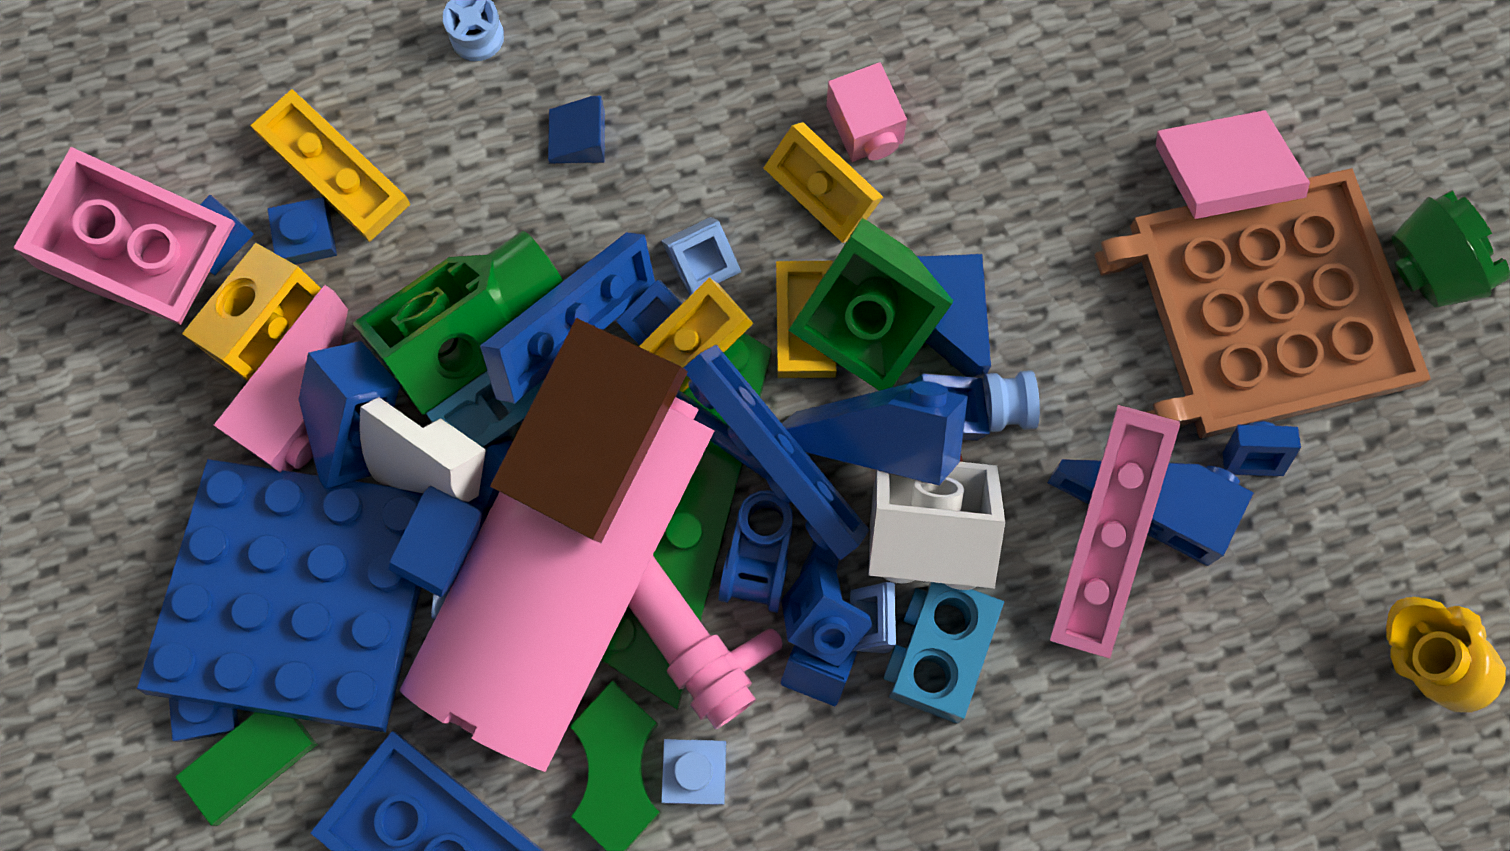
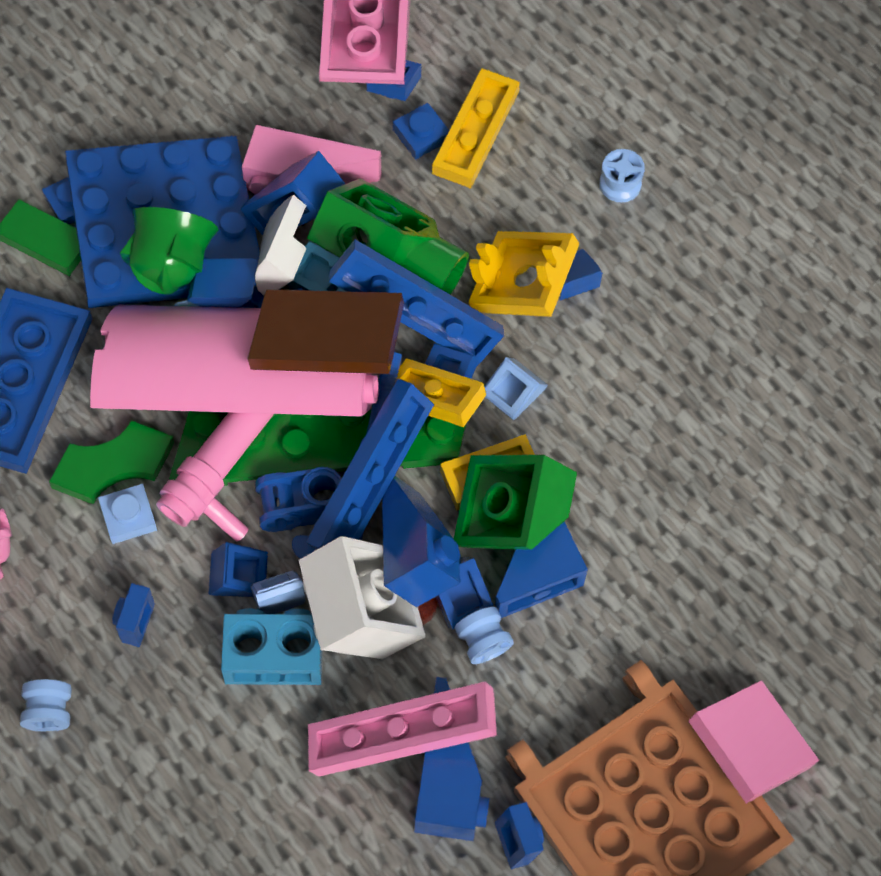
camera: 65 degrees right, 10 degrees down
(252, 311) = (346, 117): yellow brick -> none
(366, 596) = (167, 247): none -> green helmet
(529, 189) = (513, 255): none -> yellow piece
(820, 618) = (260, 550): blue bracket -> none
(822, 181) = (605, 445): yellow plate -> none
(841, 807) = (133, 614): none -> blue plate
(866, 113) = (673, 458): bright pink brick -> none

